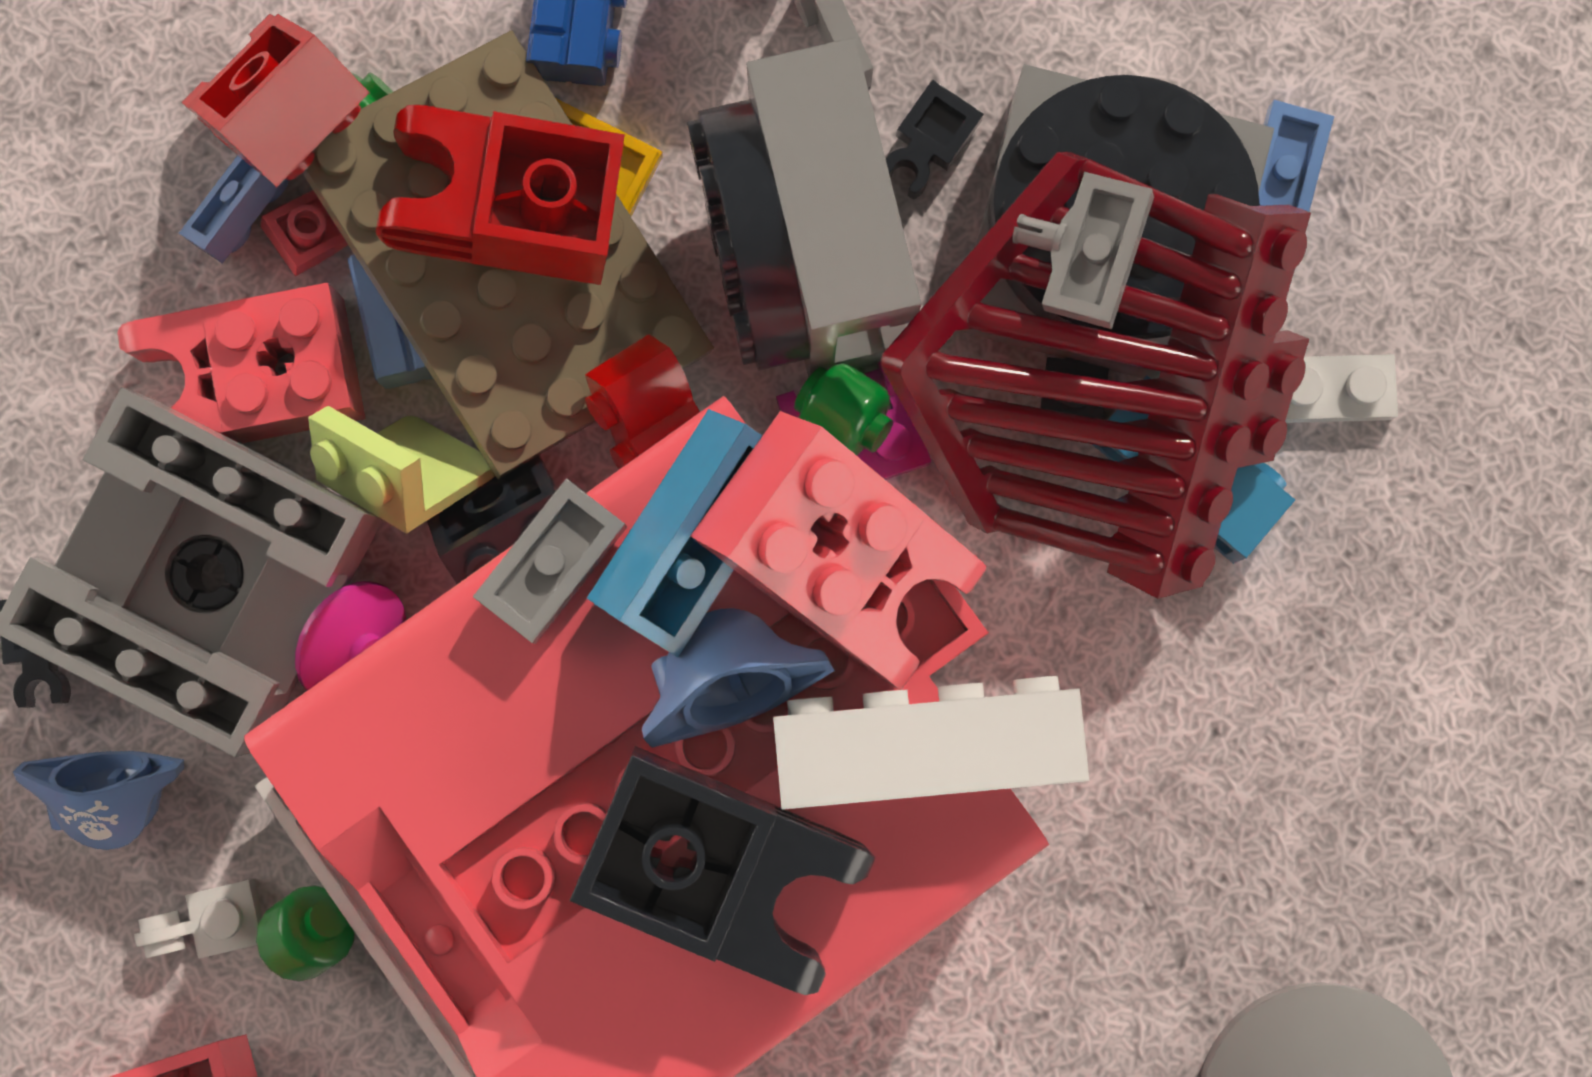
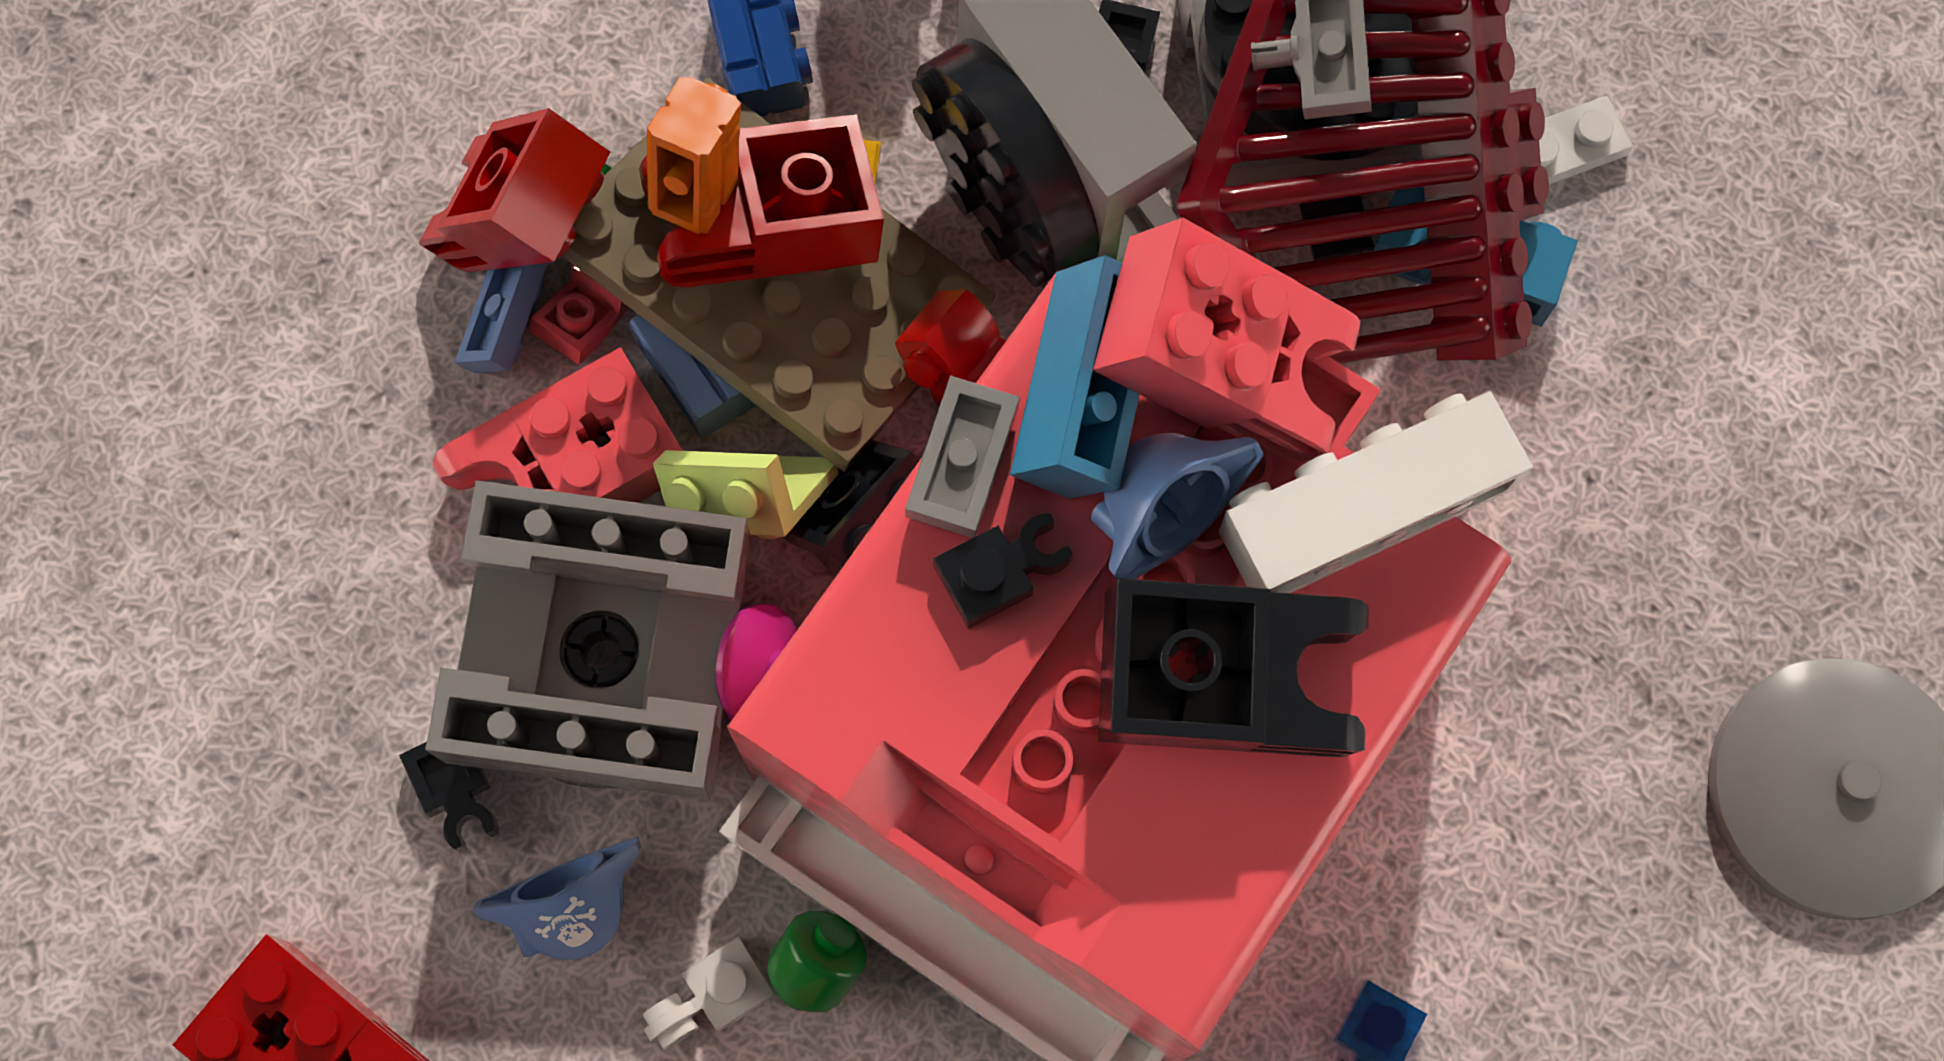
camera: 20 degrees left, 10 degrees down
(432, 135) = (693, 154): none -> orange brick
(536, 682) = (991, 573): none -> black plate

